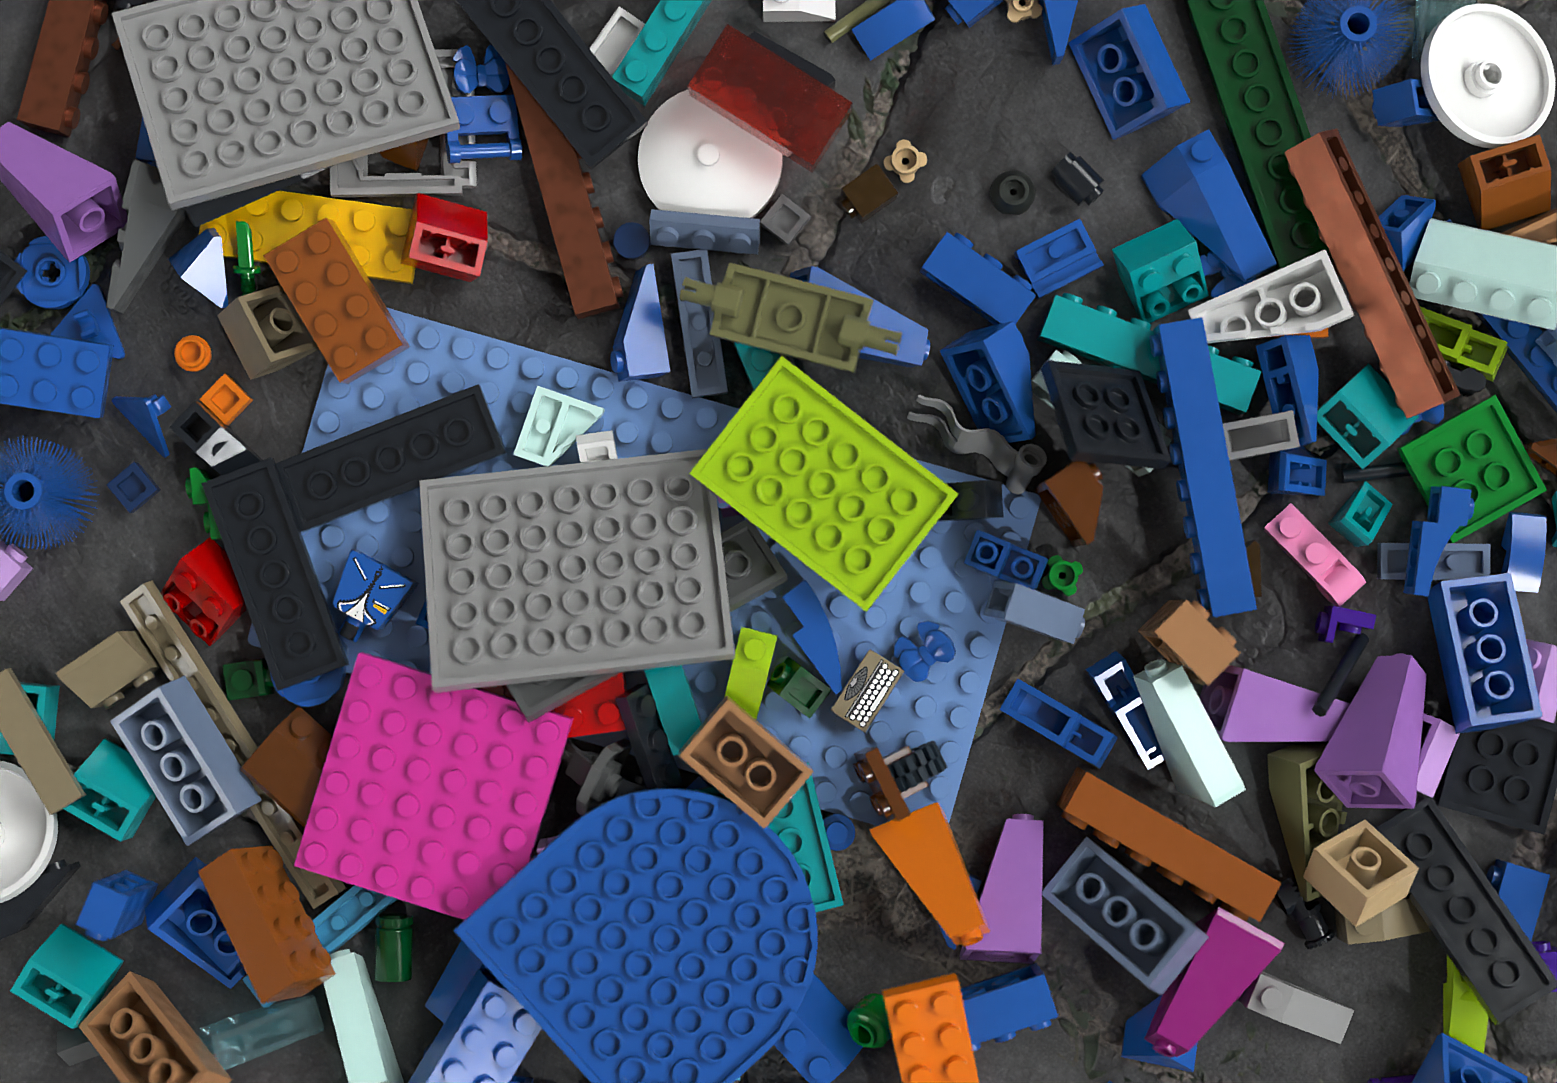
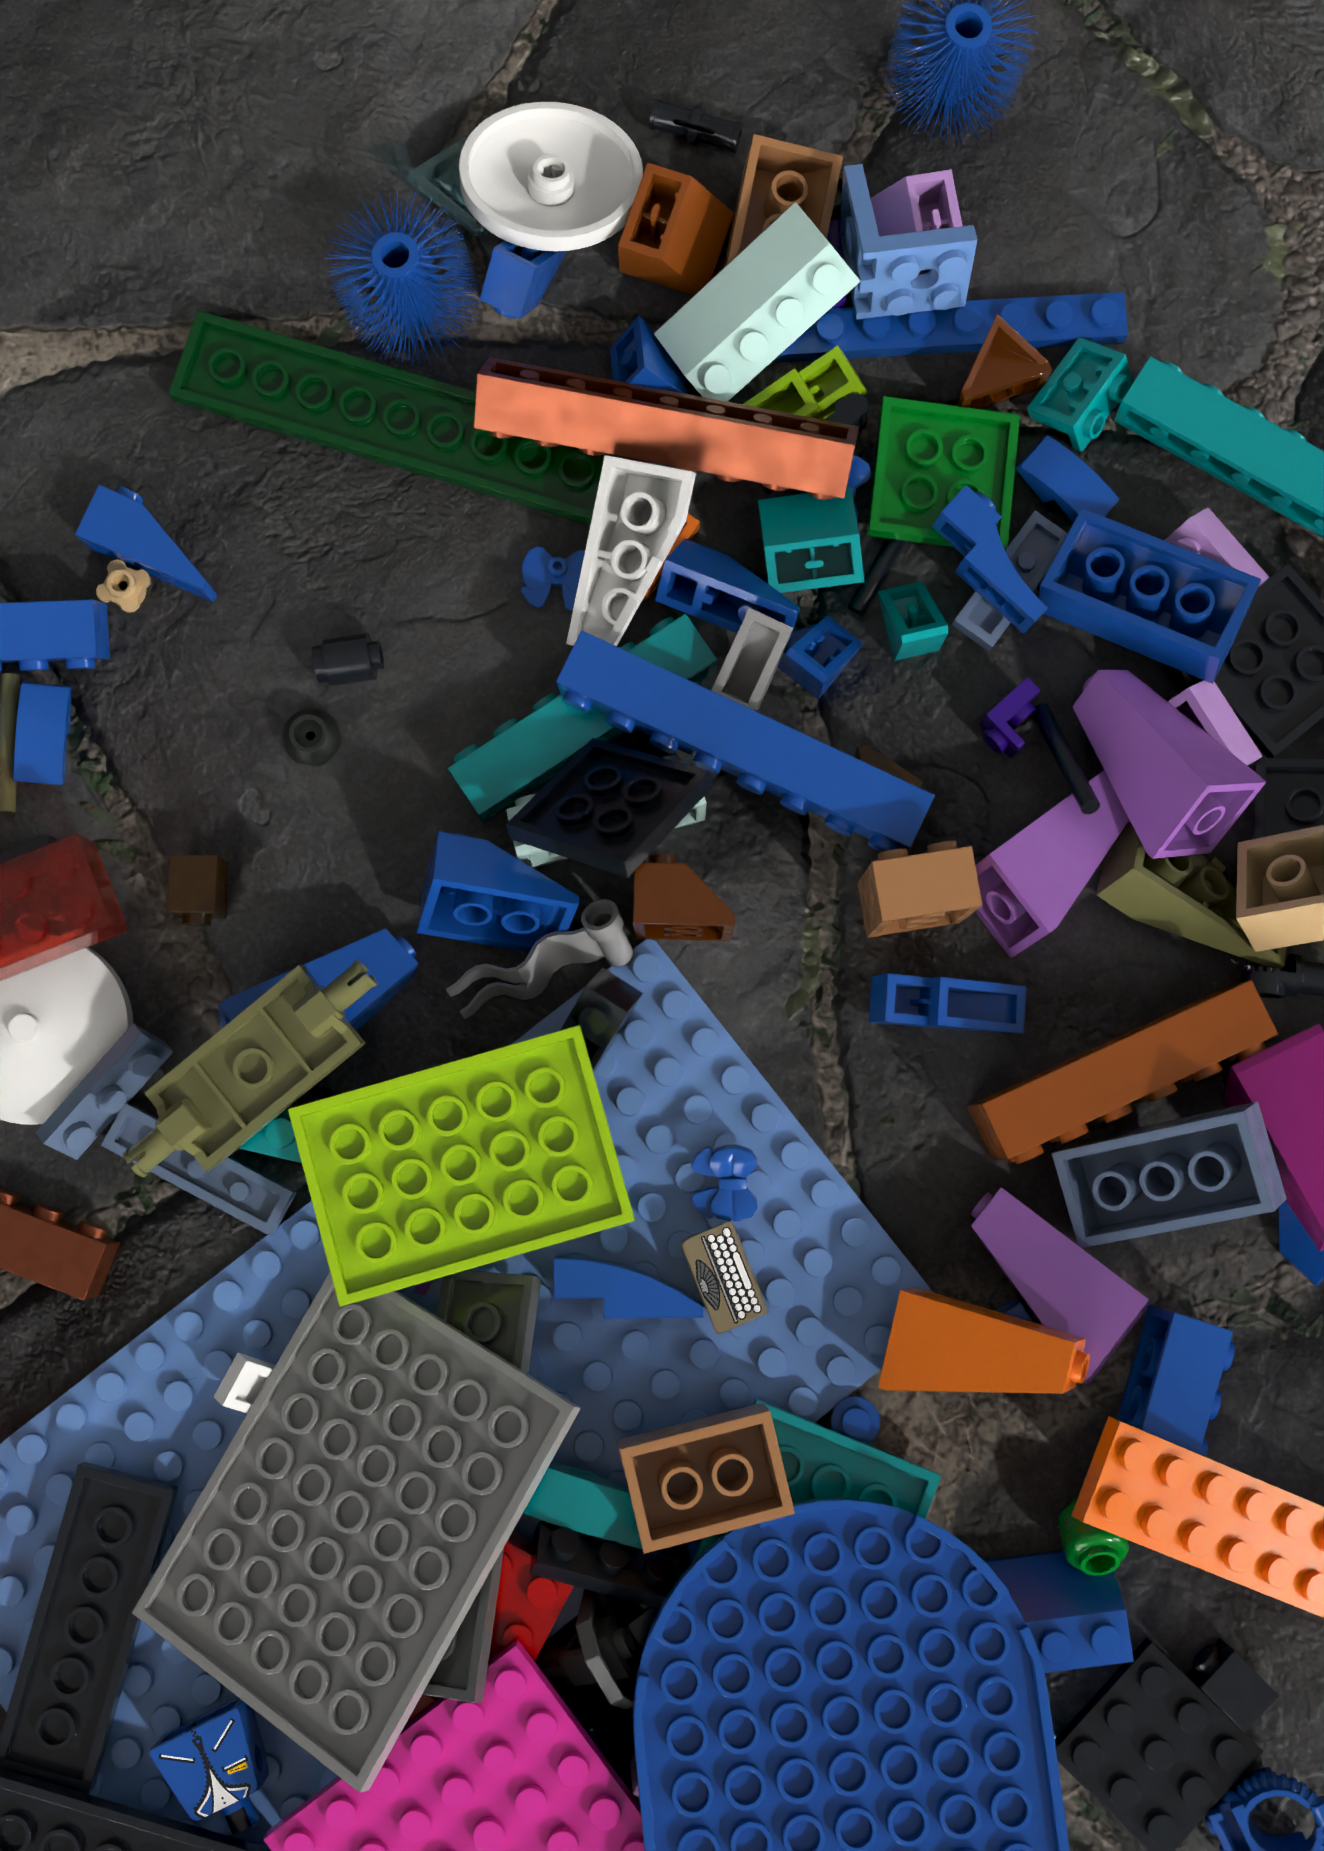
camera: 55 degrees left, 5 degrees down
(553, 426) = (184, 1413): light aqua wing -> none
(631, 241) = (58, 1177): dark blue tile -> none
(640, 339) = (167, 1247): slope -> none
(750, 669) = (609, 1390): lime slope -> none
(785, 220) = (159, 996): flat silver plate -> none
(798, 687) = (666, 1350): dark green bracket -> none
(897, 775) = (841, 1312): reddish brown plate -> none
(902, 151) = (181, 821): tan plate -> none
(977, 280) = (372, 839): blue brick -> none
(1005, 560) = (692, 1024): blue slope -> none
(1035, 611) = (768, 1032): sand blue slope -> none
(1052, 579) = (751, 961): green plate -> none
(1058, 258) = (415, 739): blue plate -> none
(1058, 723) = (906, 1093): blue slope -> none
(1129, 71) = (275, 527): blue slope -> none
(1161, 271) = (506, 642): teal slope -> none
(1186, 735) = (1017, 966): light aqua slope -> none
(1204, 195) = (464, 542): blue wedge -> none
(1315, 555) = (919, 696): bright pink plate -> none

